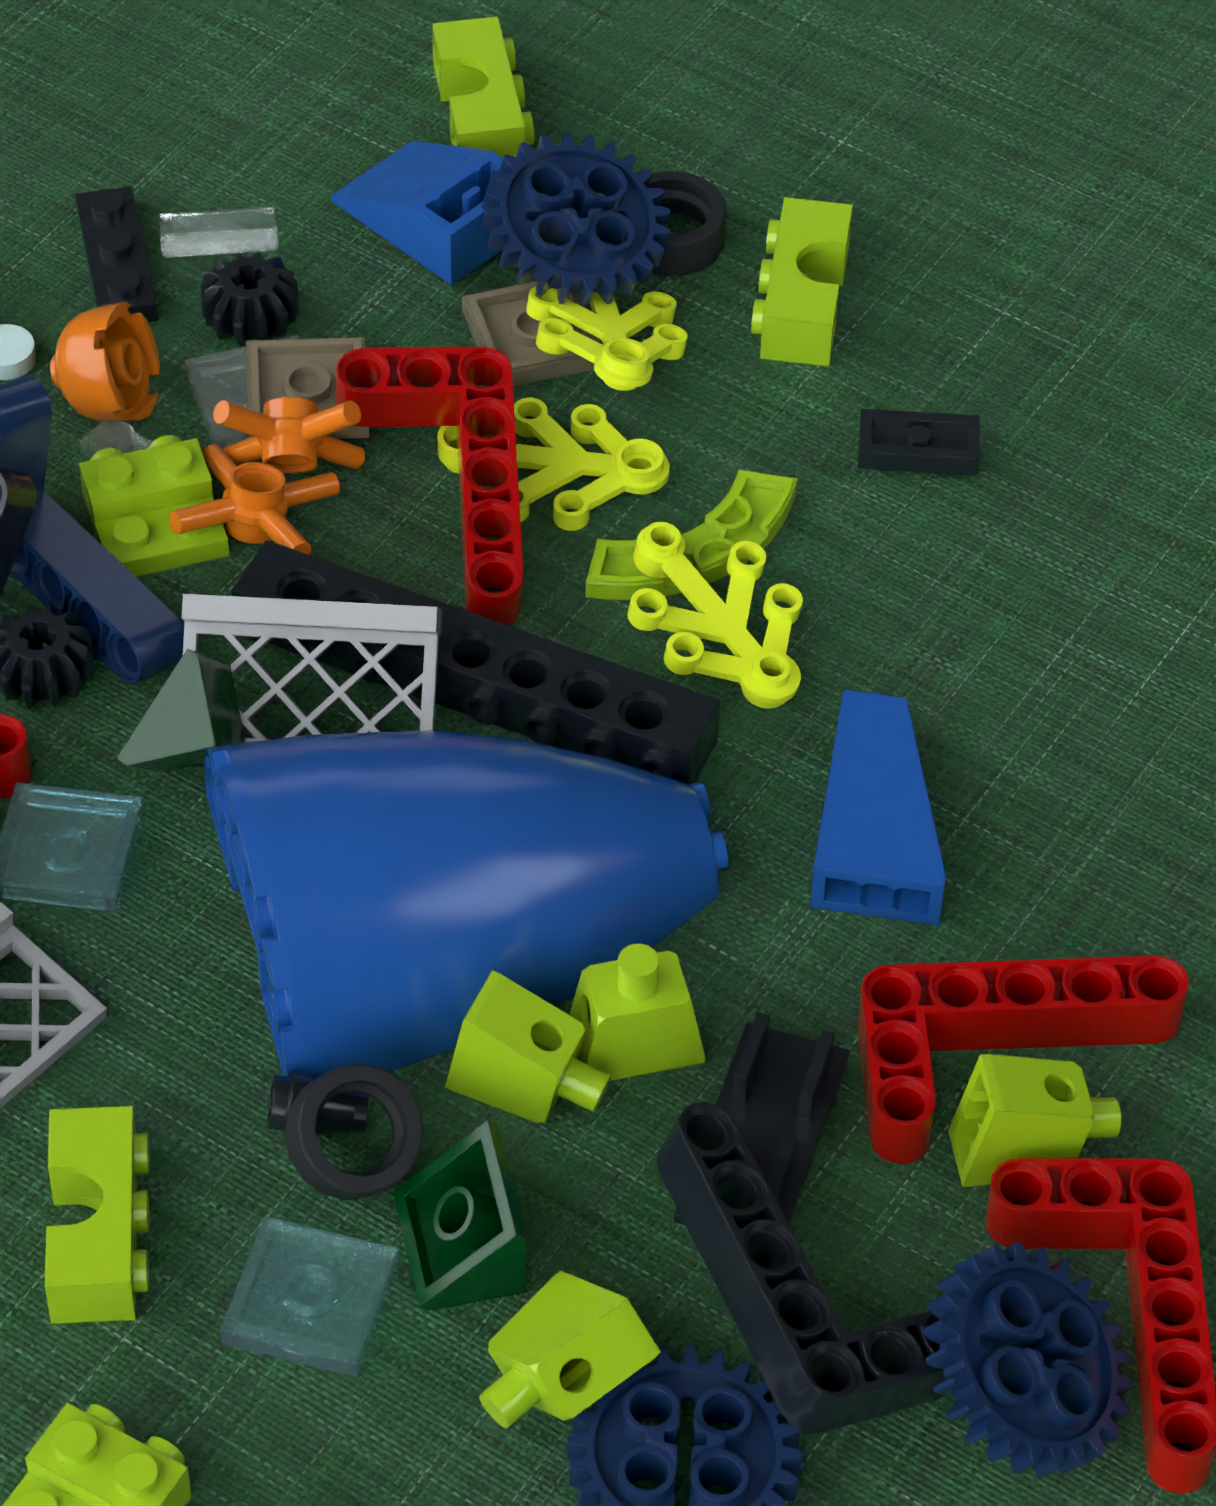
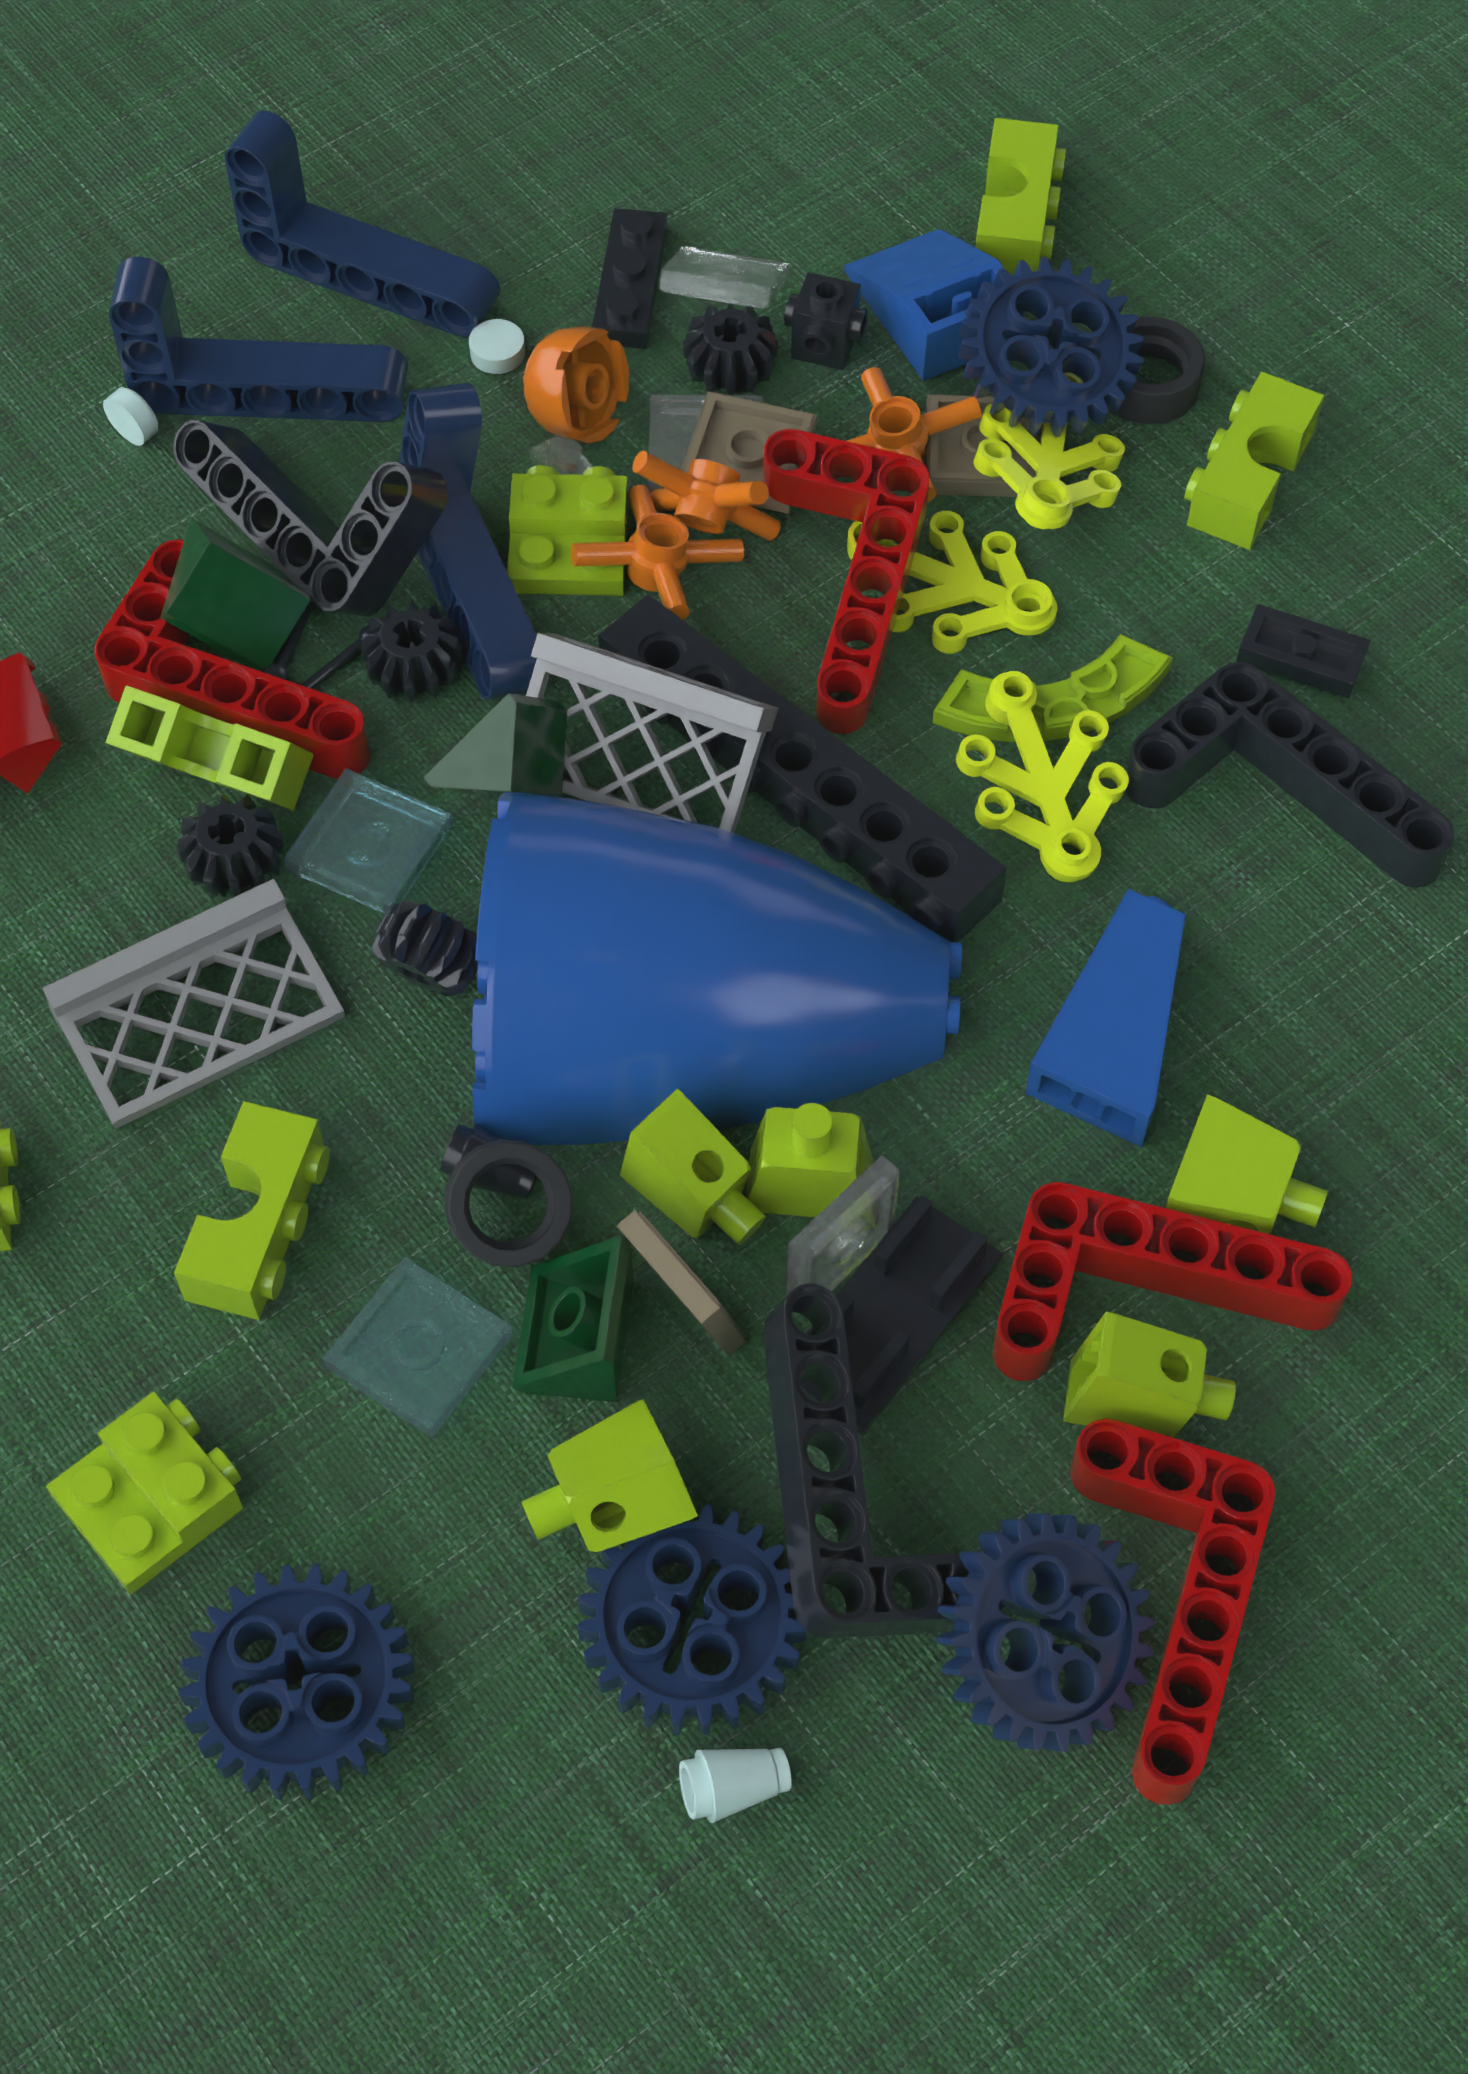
camera: 20 degrees right, 10 degrees up
(177, 922) = (427, 948): none -> black gear
(336, 238) = (825, 320): none -> black brick
(451, 321) = (900, 426): none -> orange bar
(560, 1153) = (683, 1282): none -> dark tan tile
(699, 1057) = (845, 1229): none -> clear tile
(957, 535) = (1294, 748): none -> black beam
(1047, 912) = (1242, 1173): none -> lime torso

